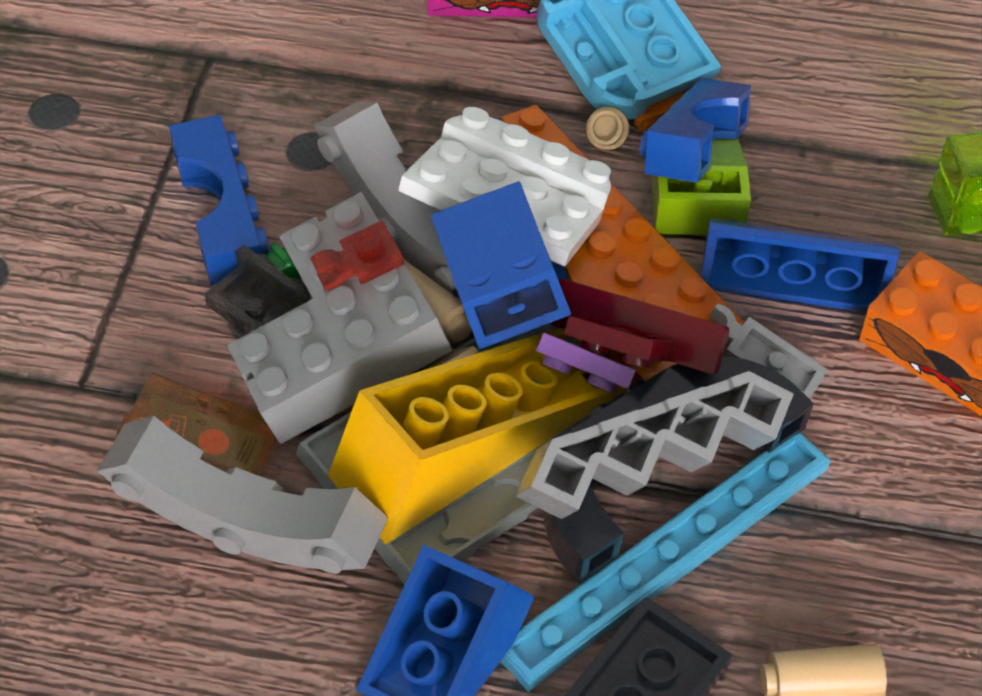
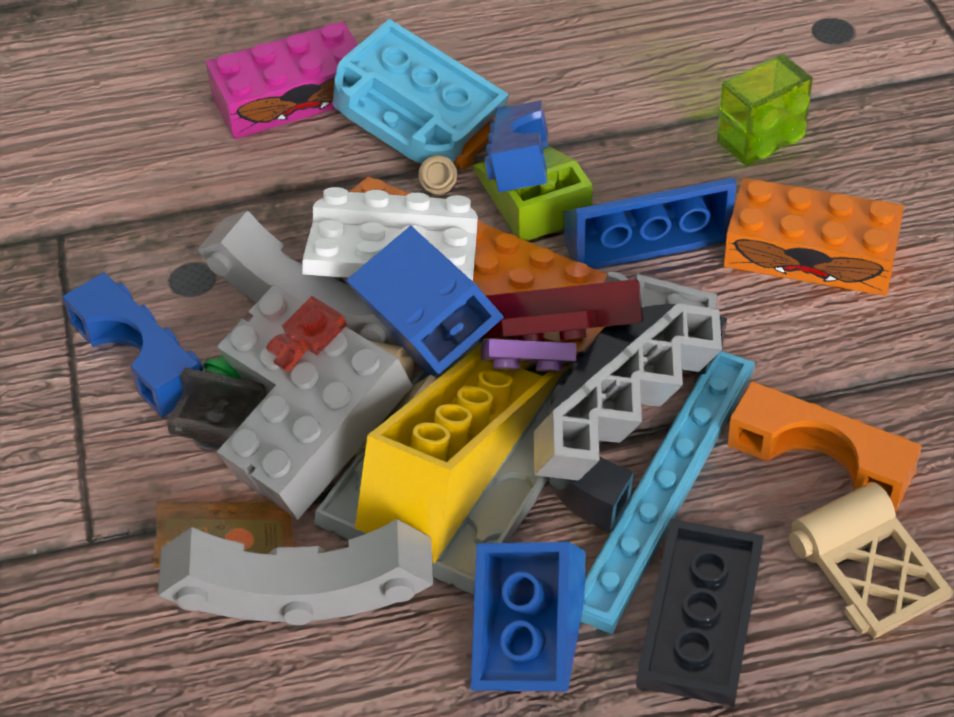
camera: 20 degrees left, 5 degrees down
(811, 535) = (775, 423): none -> orange arch

